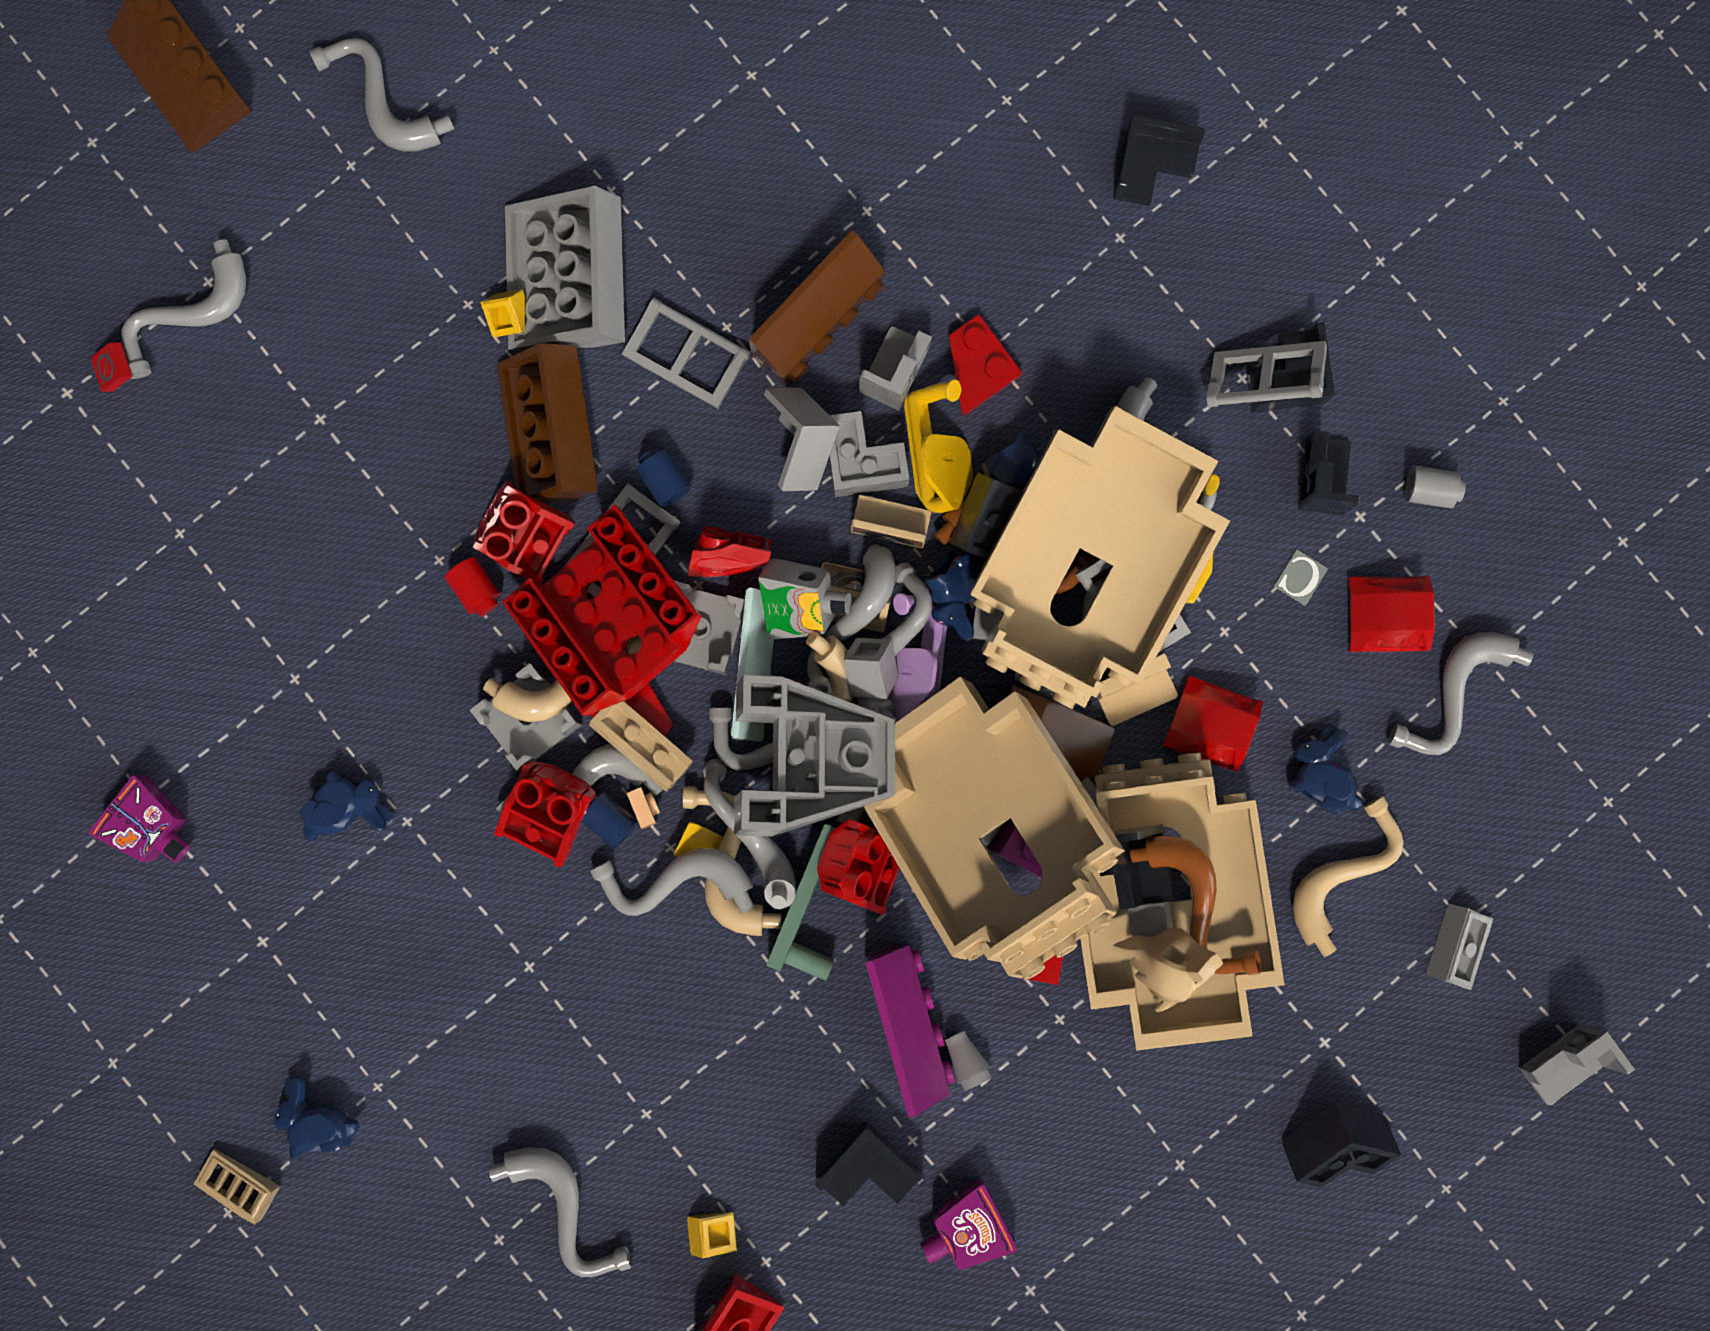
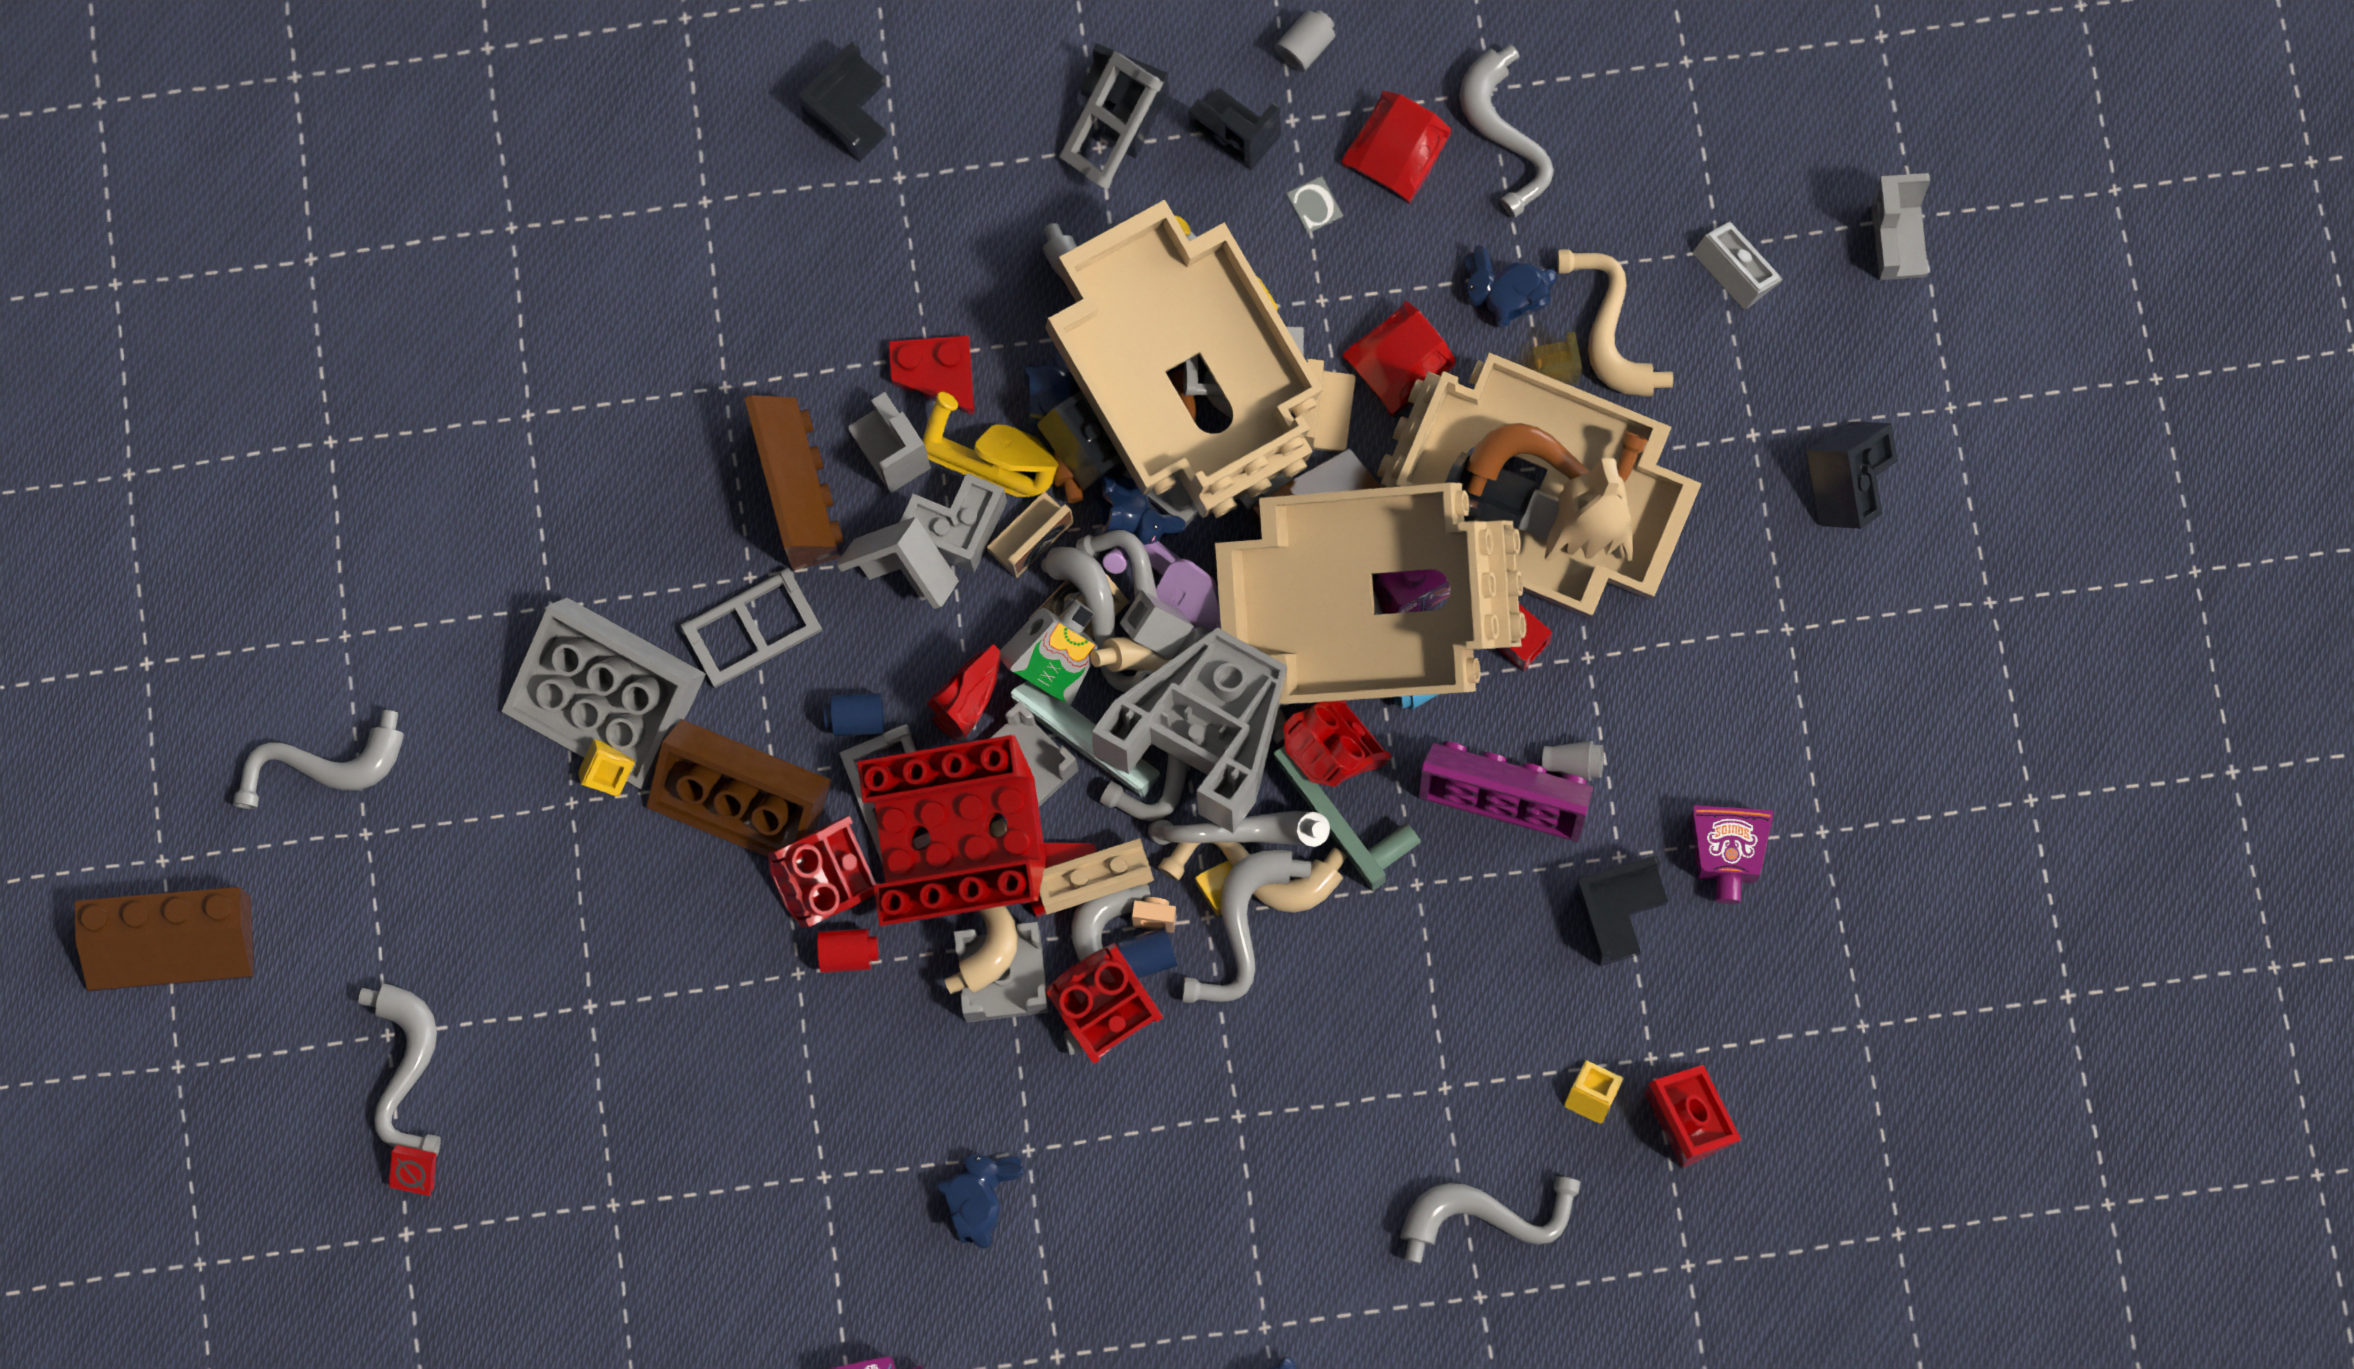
camera: 50 degrees left, 10 degrees down
(1288, 852) = (1559, 360): none -> clear yellow panel

